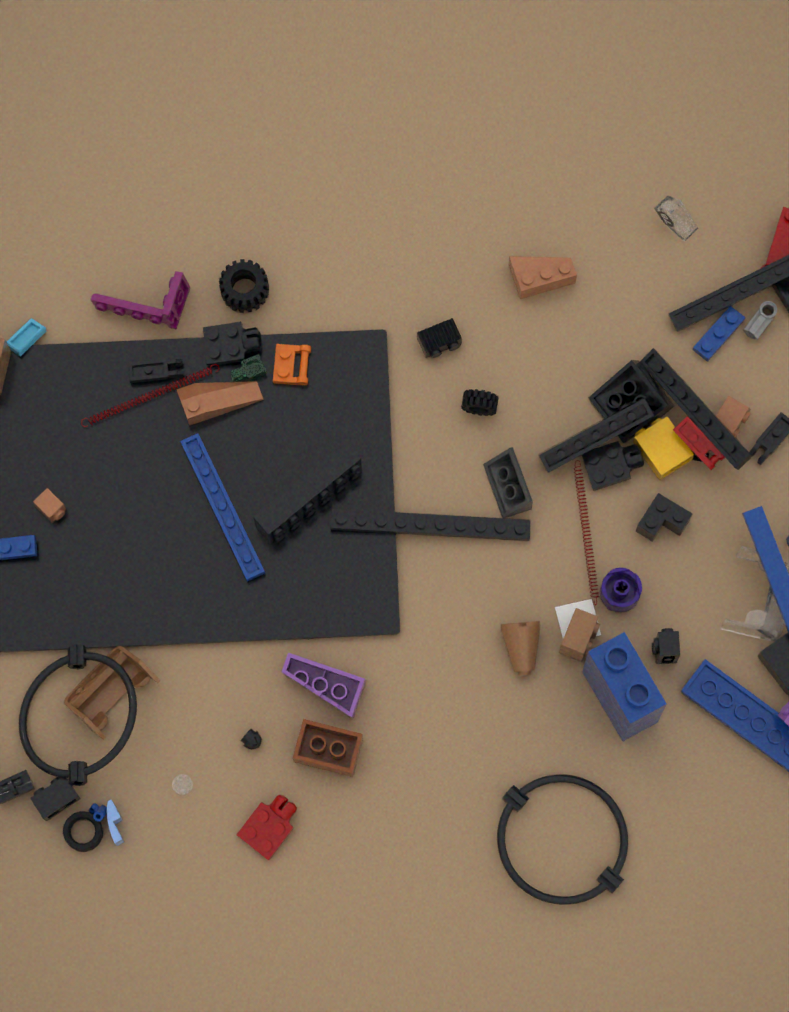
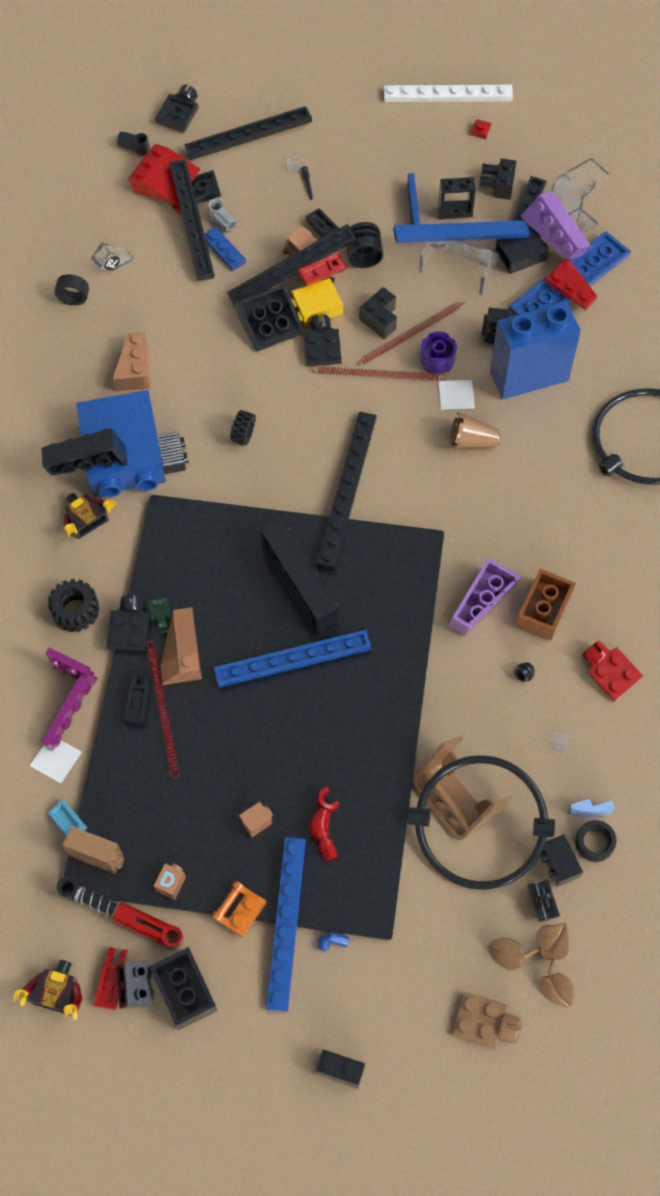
camera: 80 degrees left, 10 degrees down
(51, 565) = (319, 825): none -> red piece
(84, 314) = (56, 763): none -> white sticker
(99, 812) = (578, 820): blue arm -> none
(285, 363) = (162, 582): orange plate -> none
(347, 269) = (85, 514): none -> torso
(397, 250) = (84, 453): none -> black wedge
(433, 283) = (134, 423): none -> blue brick
(508, 484) = (322, 419): dark grey slope -> none
(578, 635) = (474, 387): medium nougat brick -> none
(596, 434) = (297, 342): black brick -> none
(618, 186) = (75, 282): none -> black tyre
(646, 558) = (411, 332): none -> piece
(748, 723) = (571, 284): none -> red wing
(750, 482) = (367, 248): none -> black wheel

